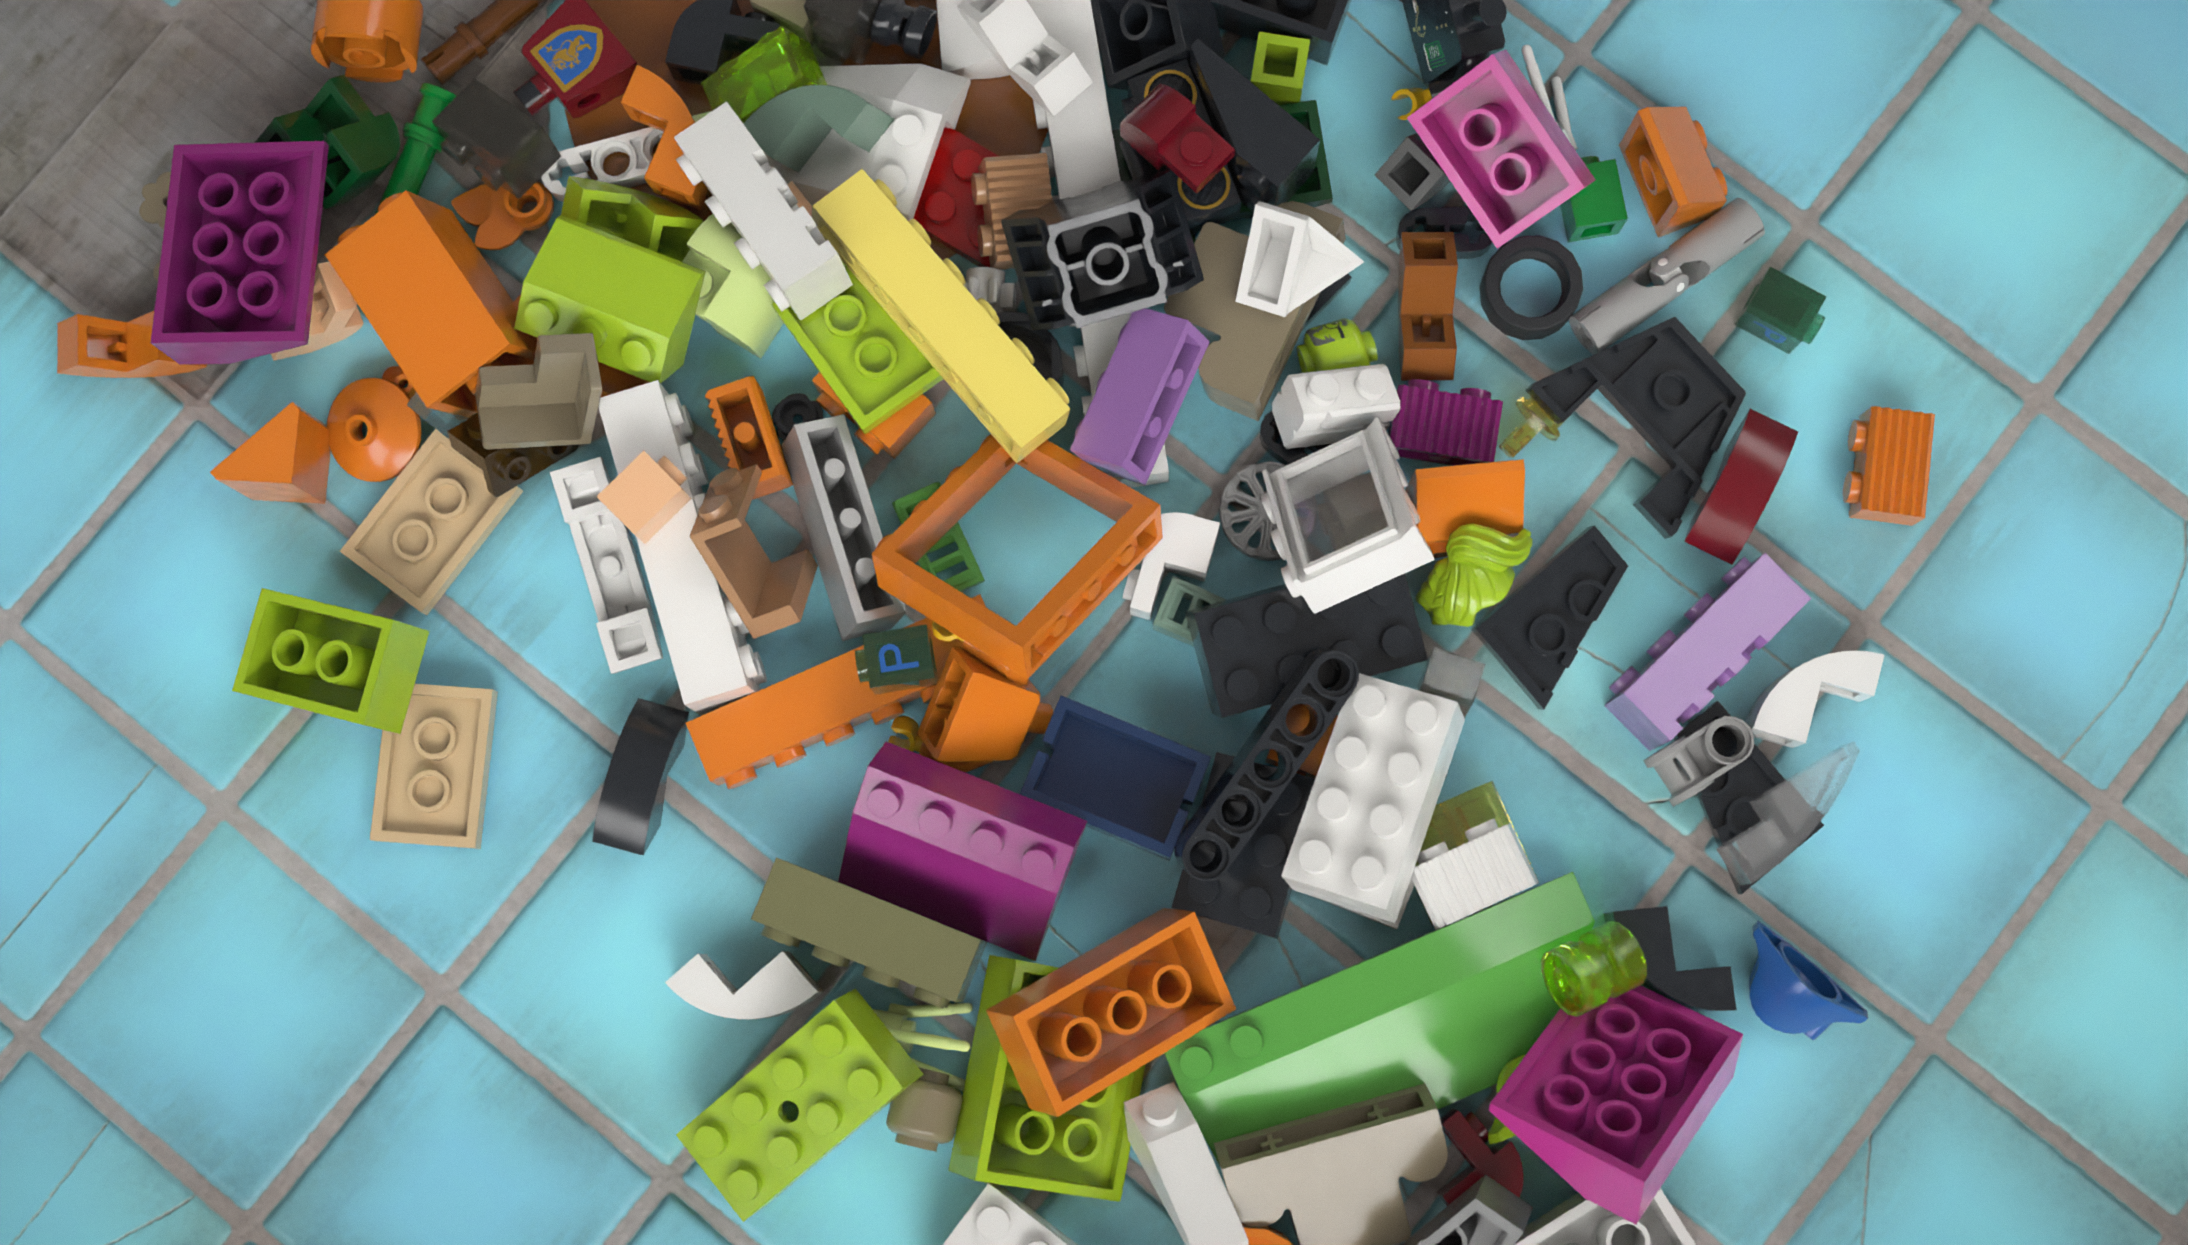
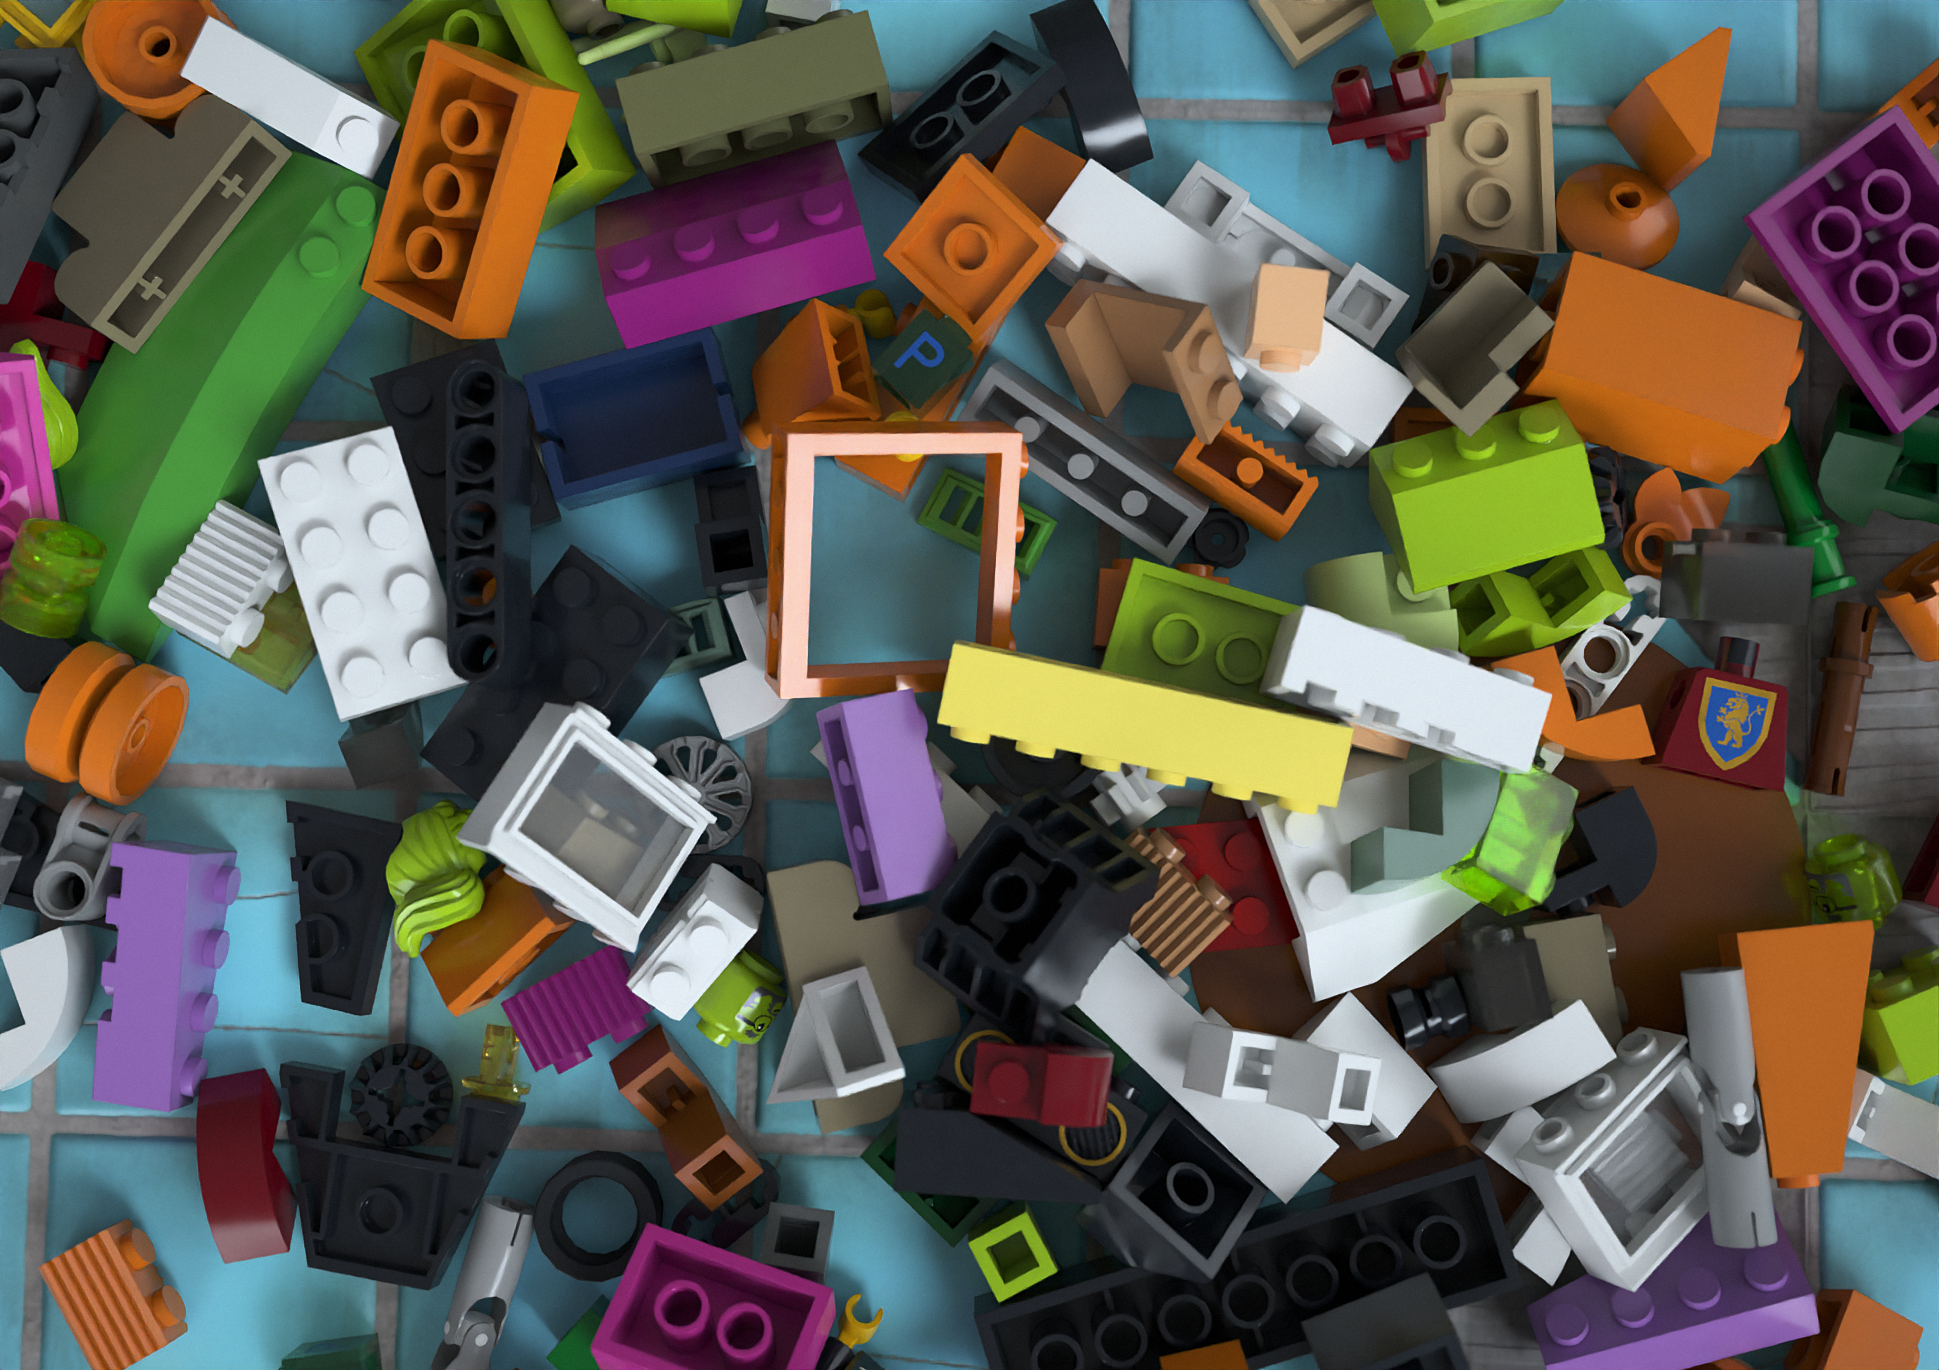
camera: 140 degrees right, 5 degrees up
(461, 606) = (1389, 113): none -> dark red hips
(523, 256) = (1611, 493): none -> black gear
(743, 817) = (963, 114): none -> black plate
(807, 708) = (973, 247): none -> orange plate
(1110, 655) = (731, 531): none -> black brick
(1606, 485) = (425, 1079): none -> black gear
(1627, 846) = (106, 723): none -> orange wheel

